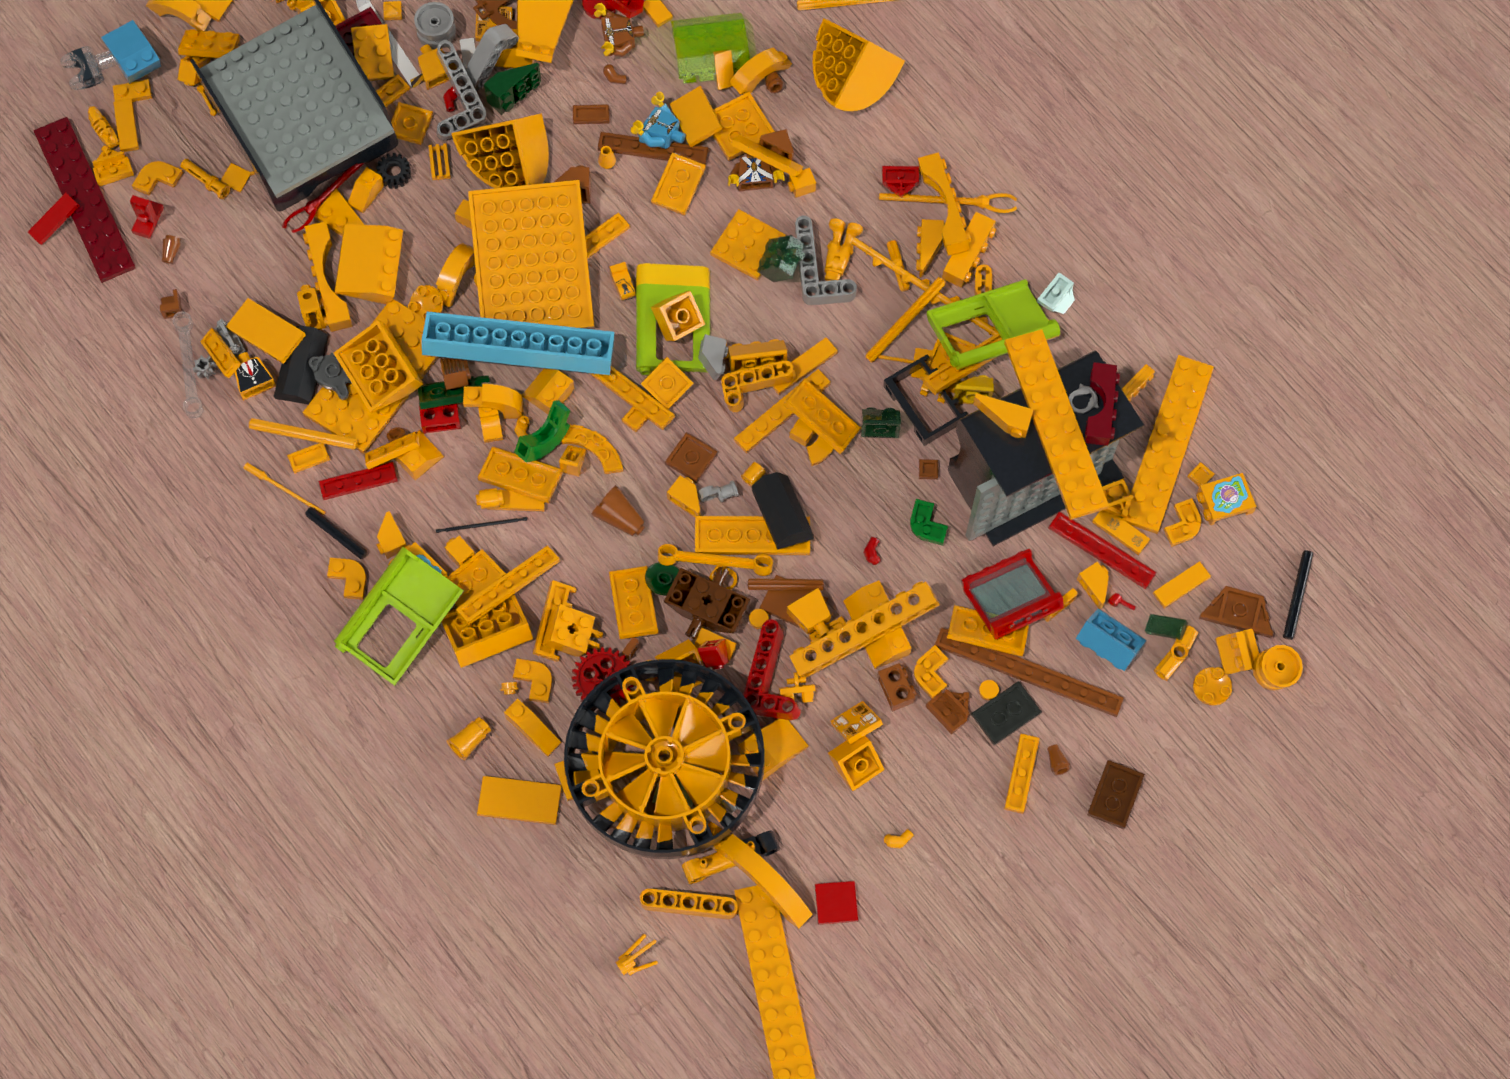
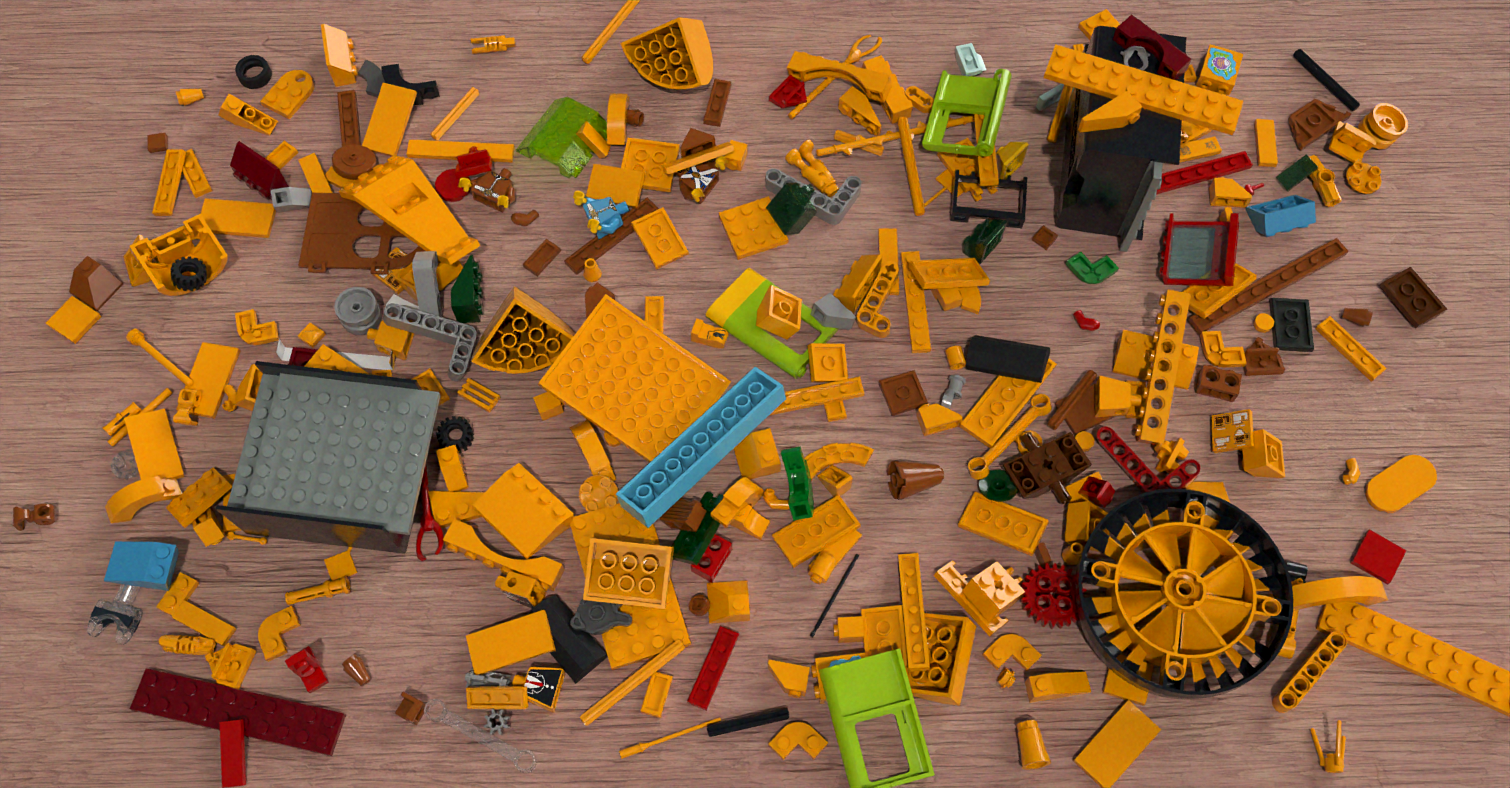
camera: 50 degrees left, 5 degrees down
(392, 450) = (712, 617): light orange tile -> none
(449, 98) = (429, 347): red arm -> none
(844, 132) = (717, 102): none -> dark orange tile
(920, 884) = (1401, 483): none -> light orange tile

